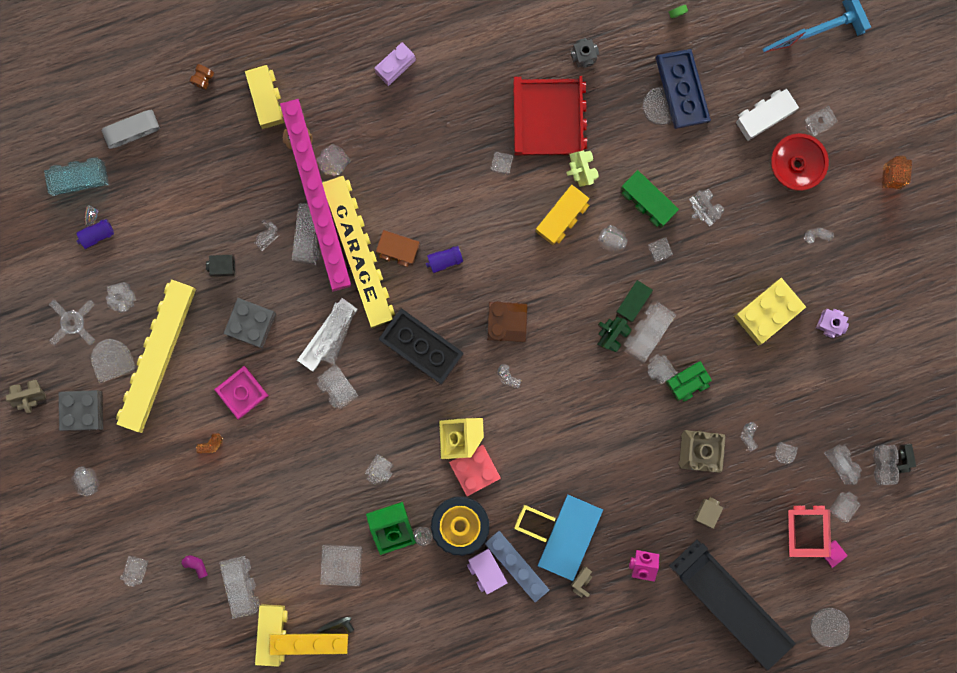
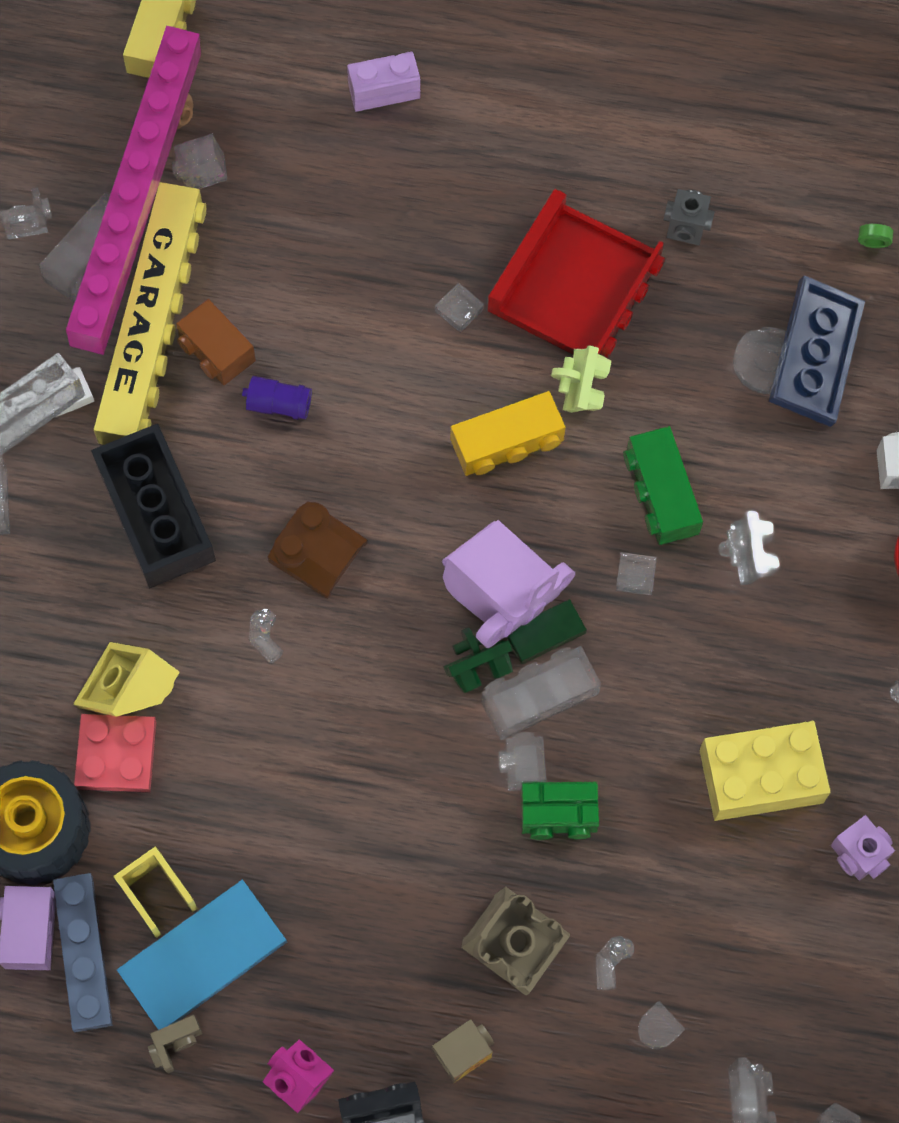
camera: 30 degrees right, 15 degrees down
(604, 291) = (502, 581): none -> lavender piece
(612, 239) = (566, 512): clear head -> none

